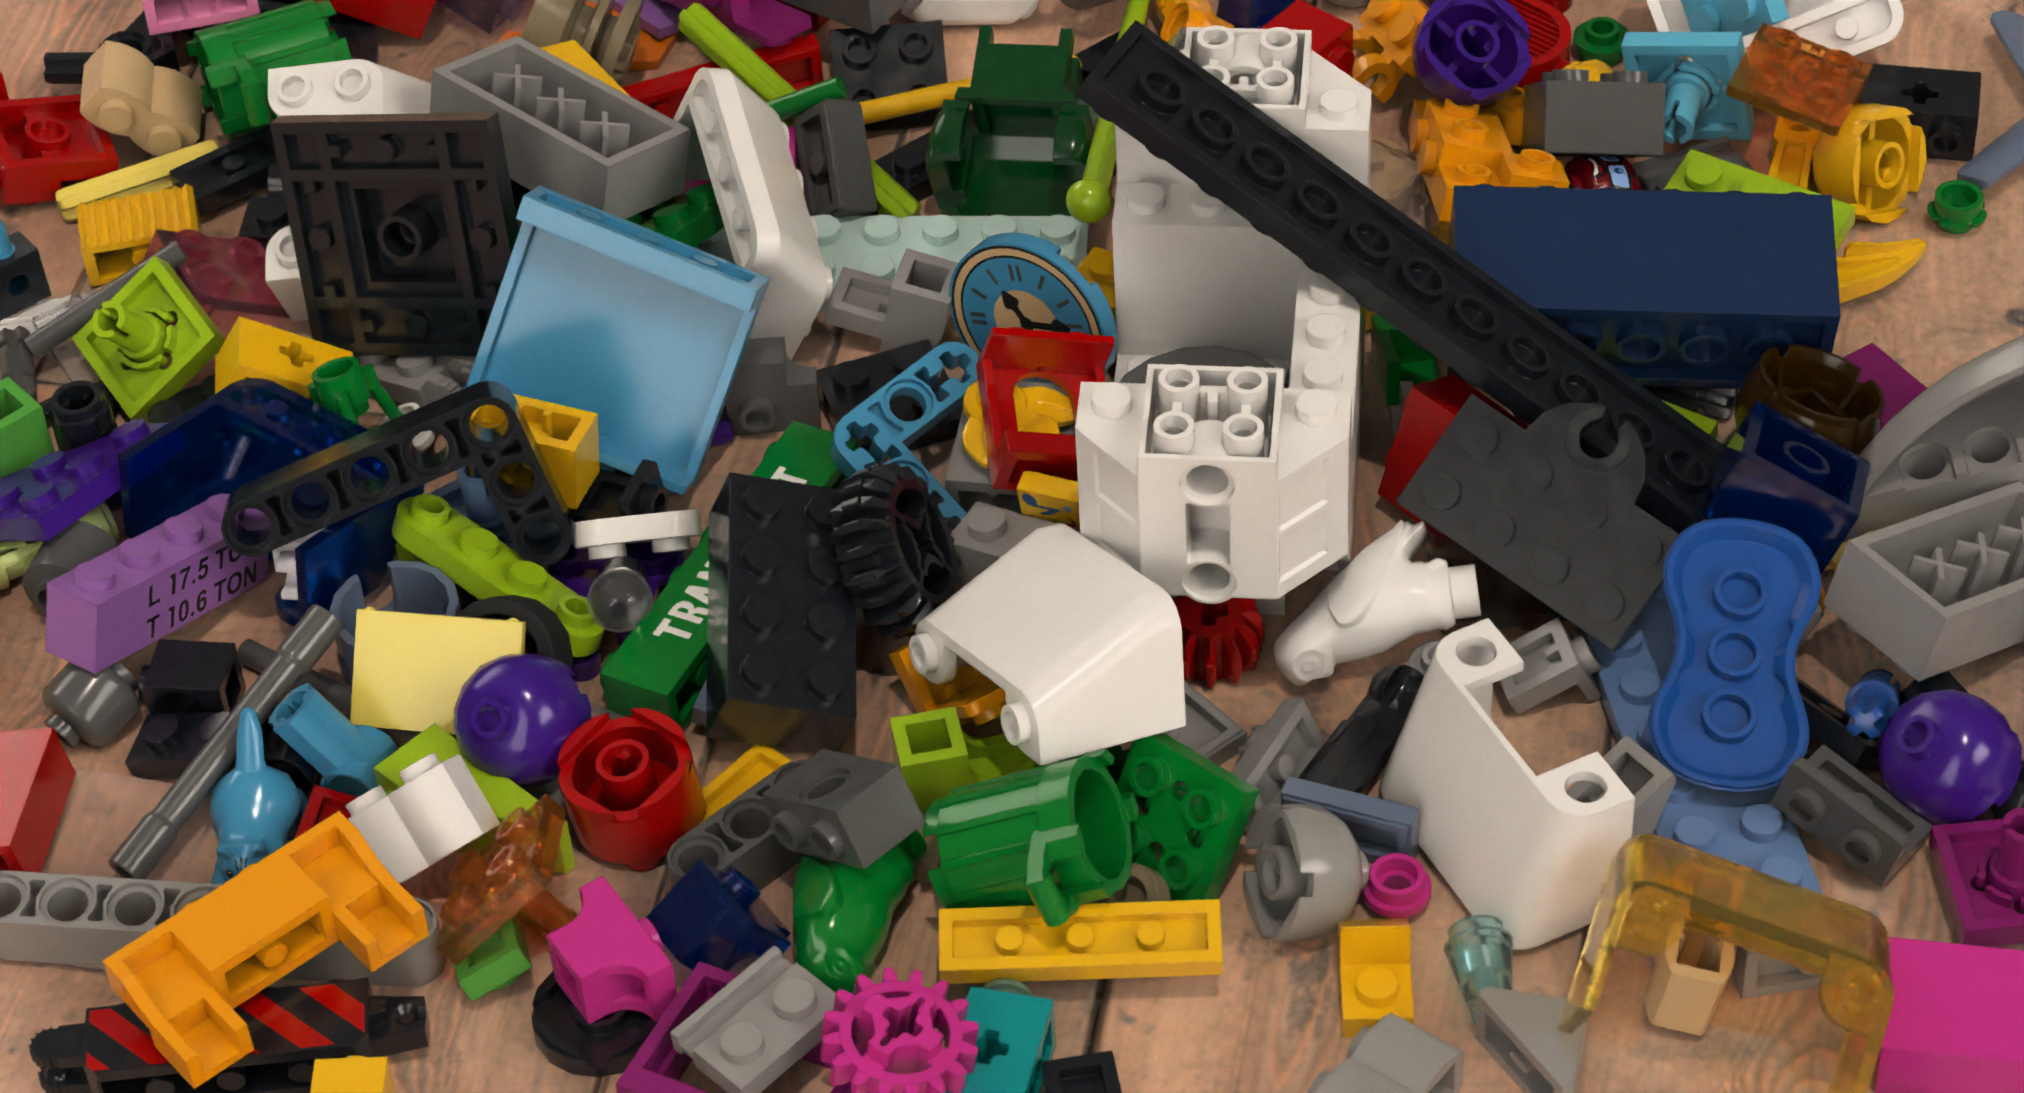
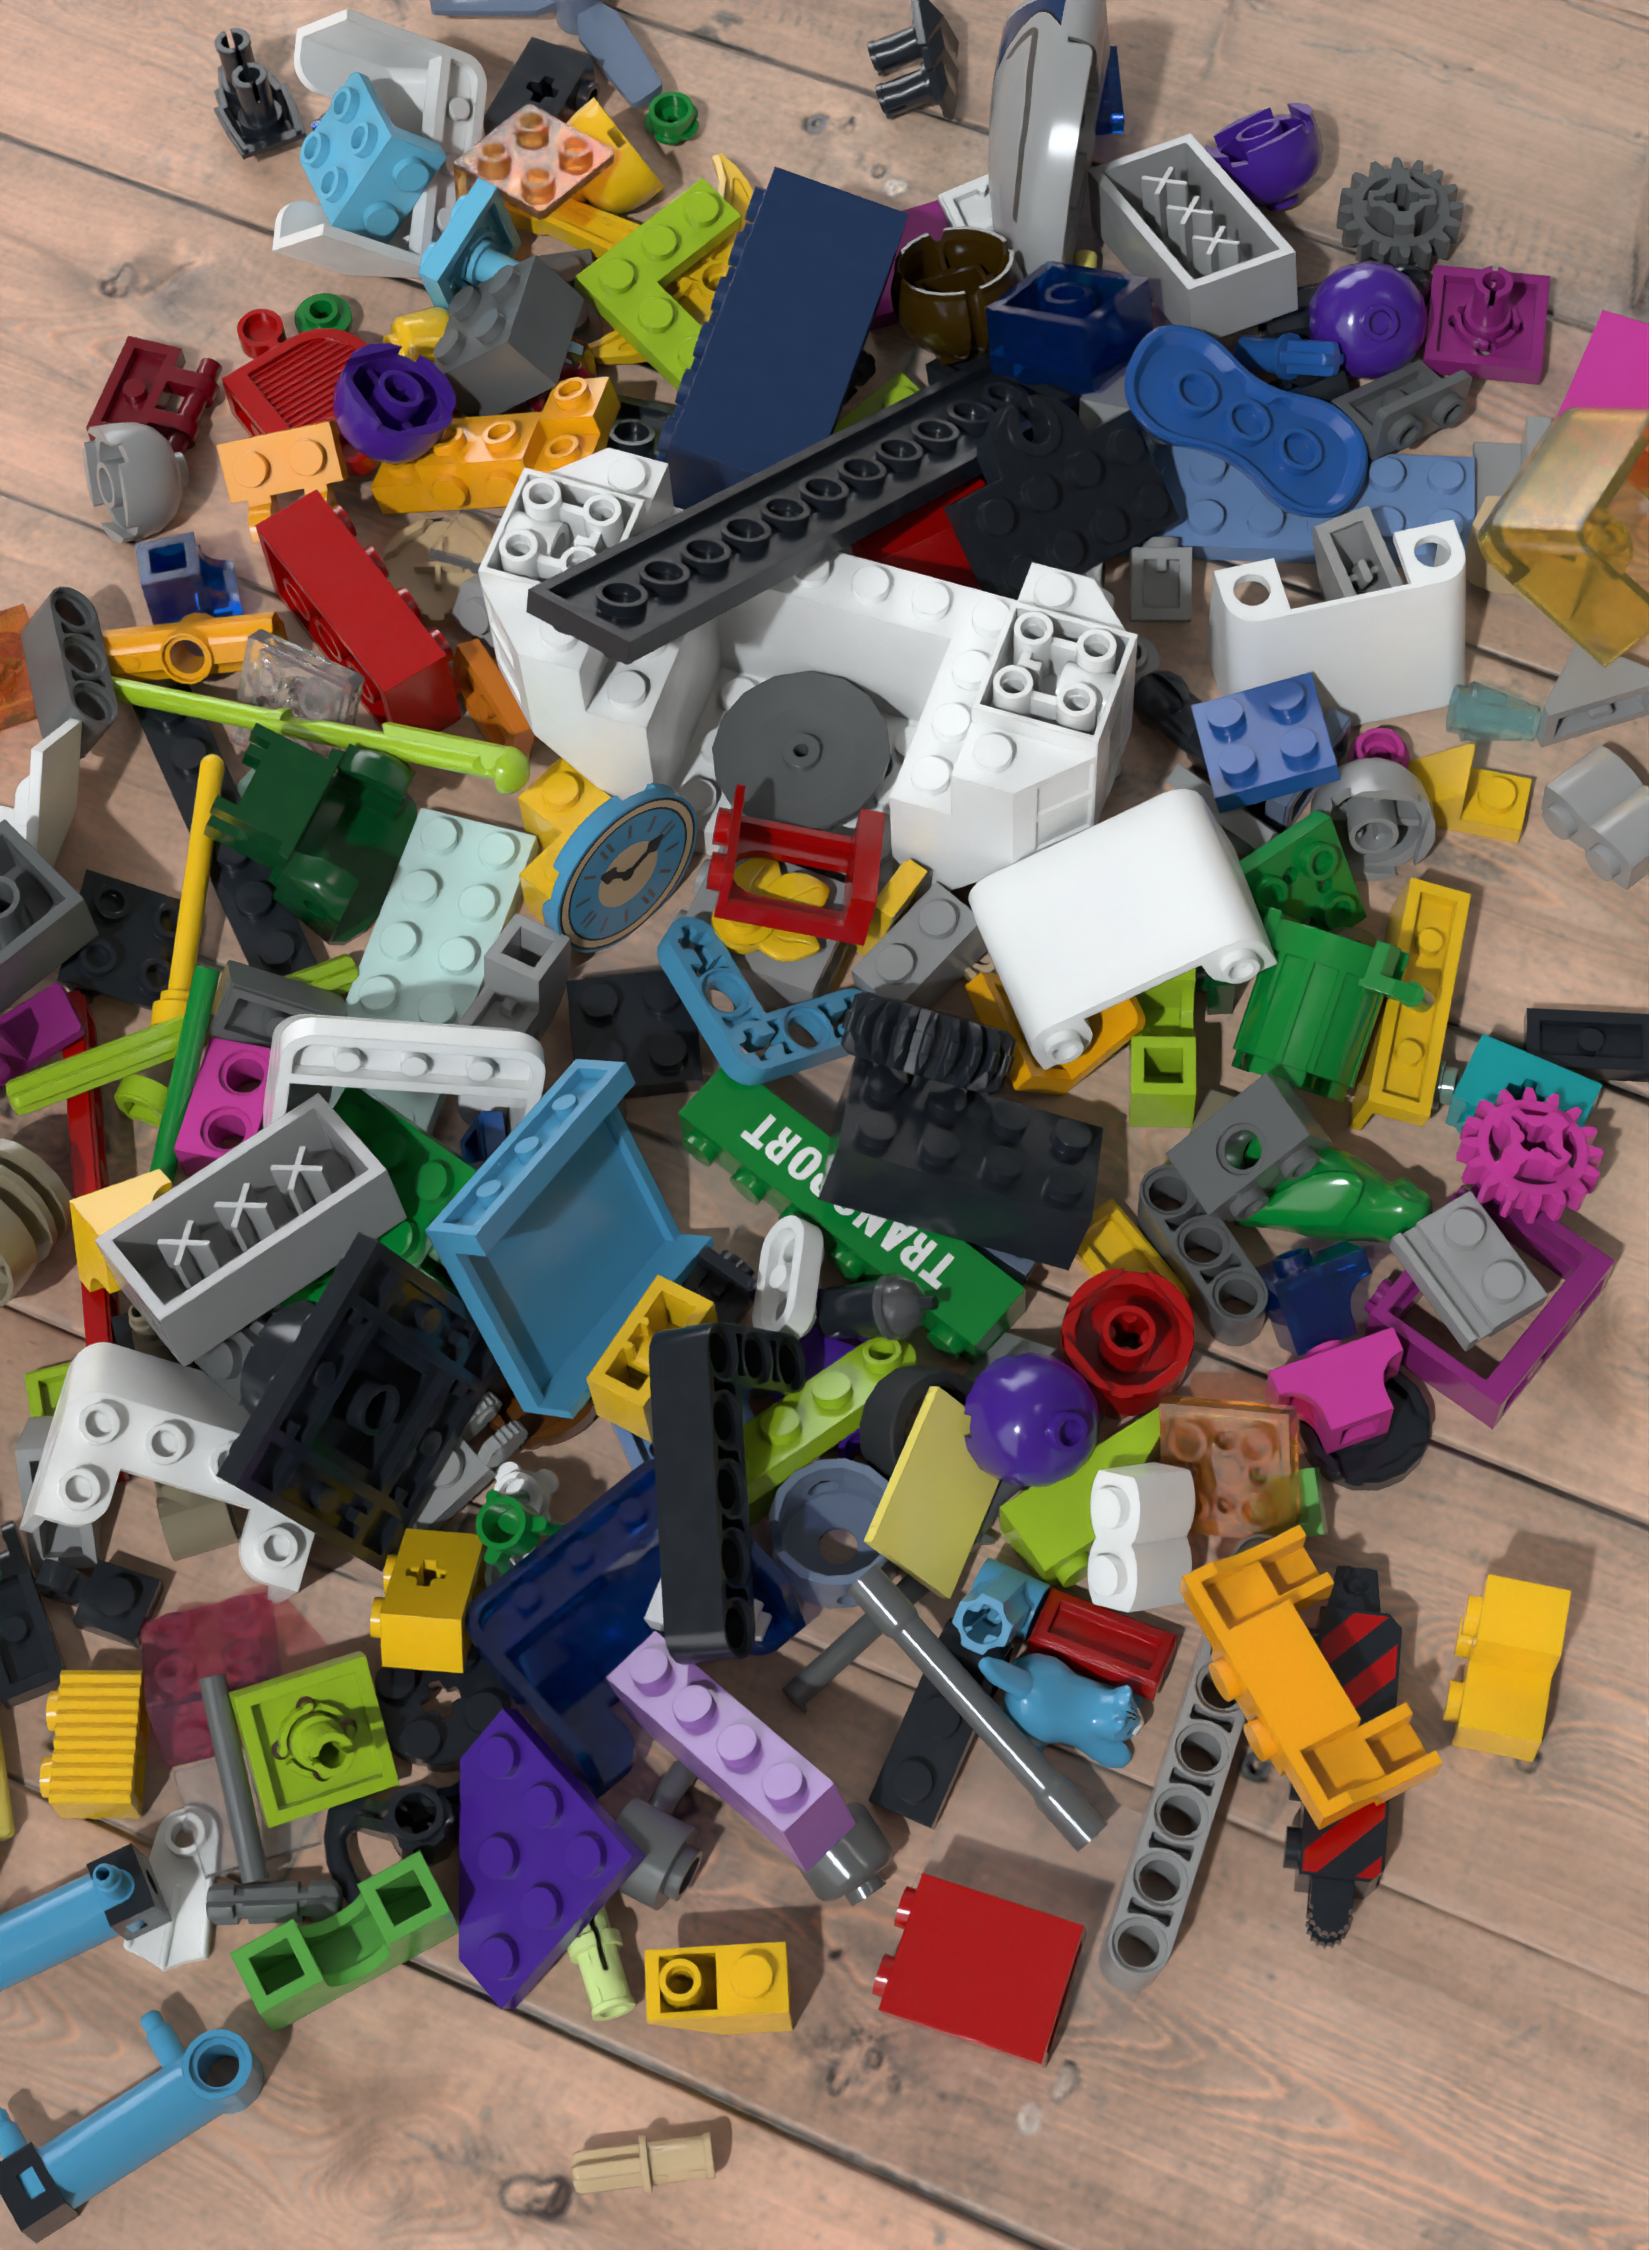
camera: 75 degrees left, 20 degrees up
(192, 677) = (851, 1743): black brick -> none
(1339, 746) = (1265, 742): none -> plate

